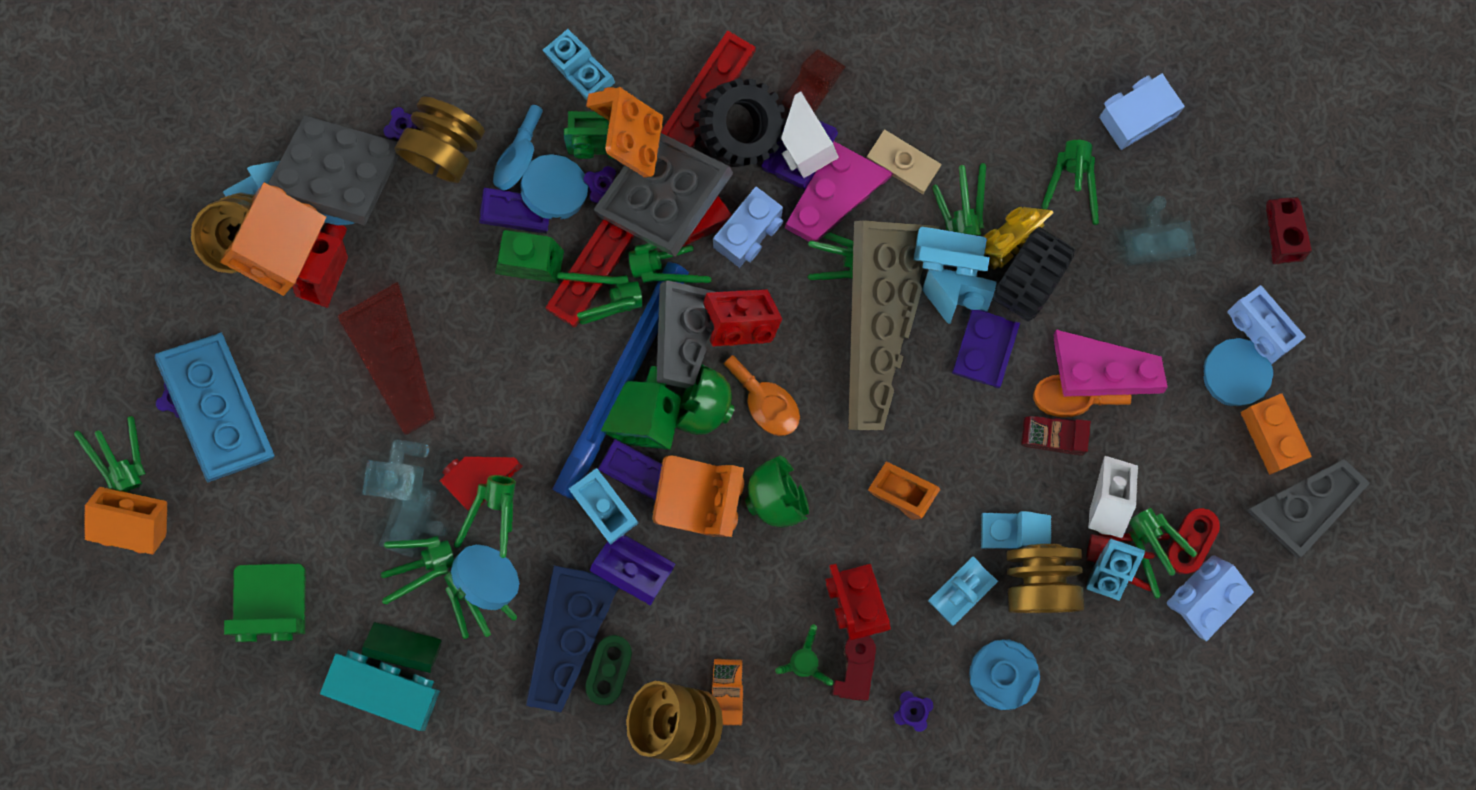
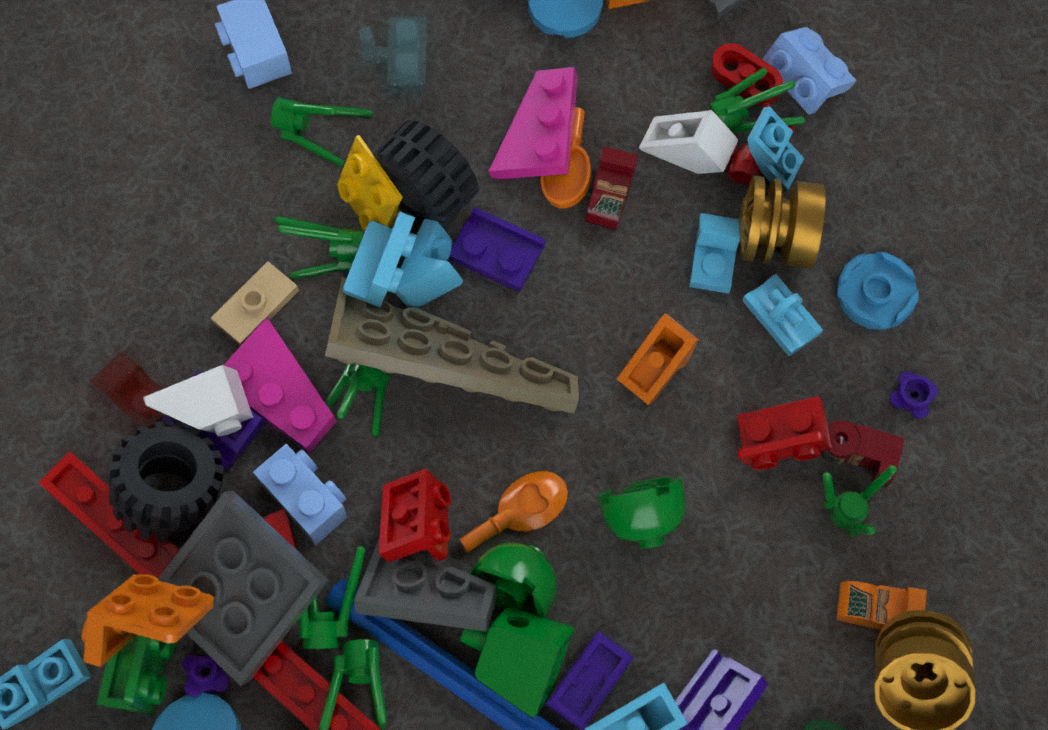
camera: 80 degrees left, 10 degrees down
(698, 496) = (636, 603): orange bracket -> none

